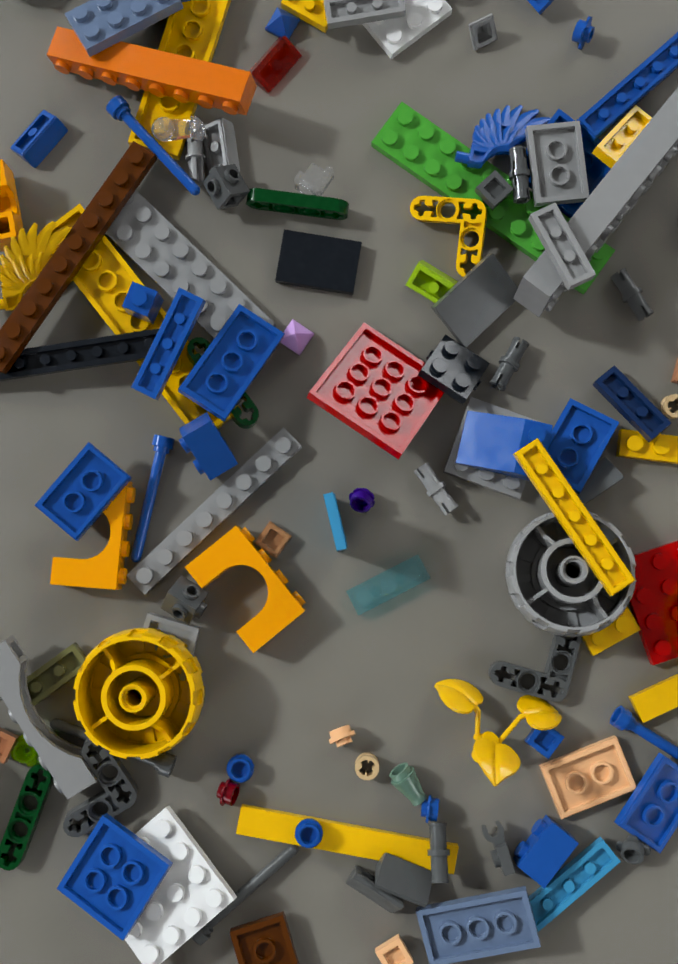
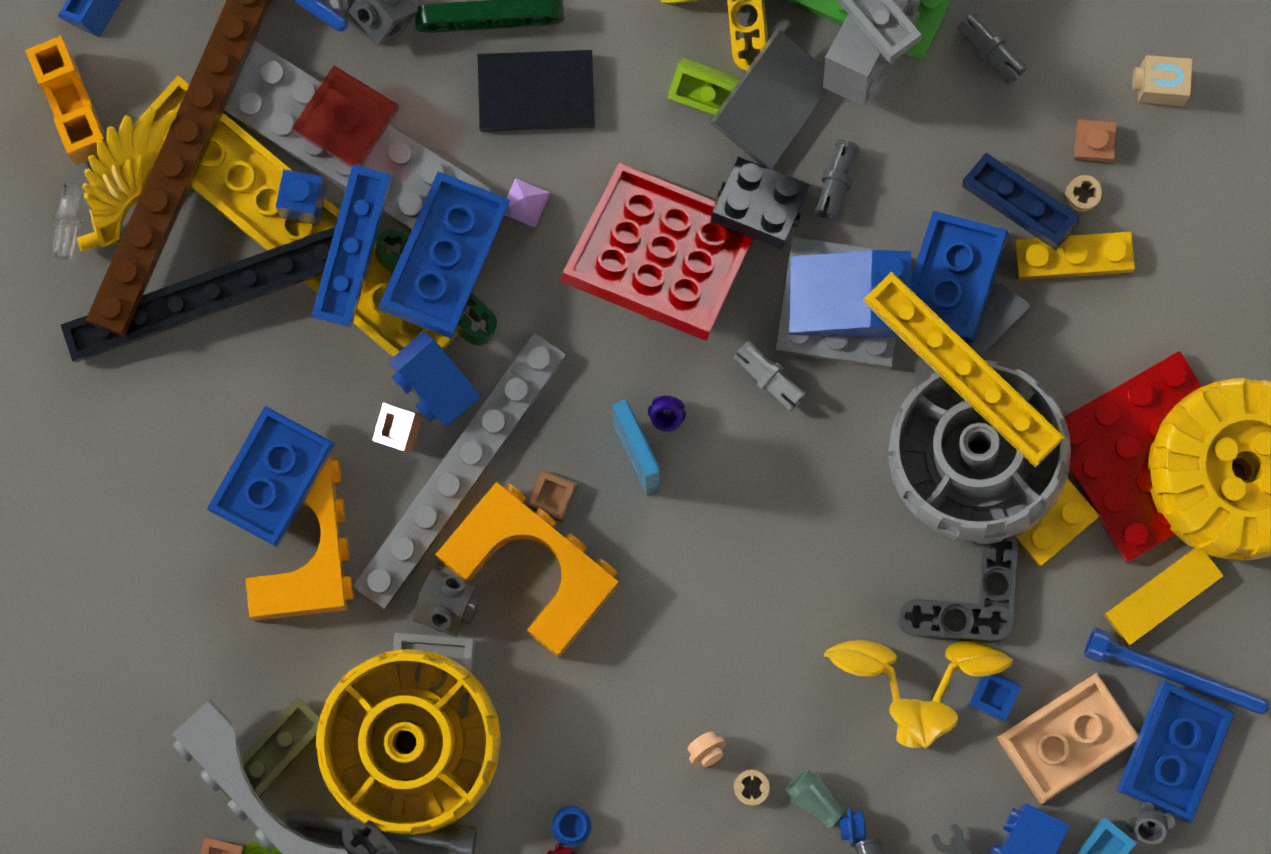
camera: 10 degrees left, 5 degrees down
(162, 447) = (365, 395): blue piece -> none
(178, 473) = (397, 427): none -> plate
(184, 254) = (345, 118): none -> clear red plate
(388, 584) = (728, 525): clear light blue plate -> none

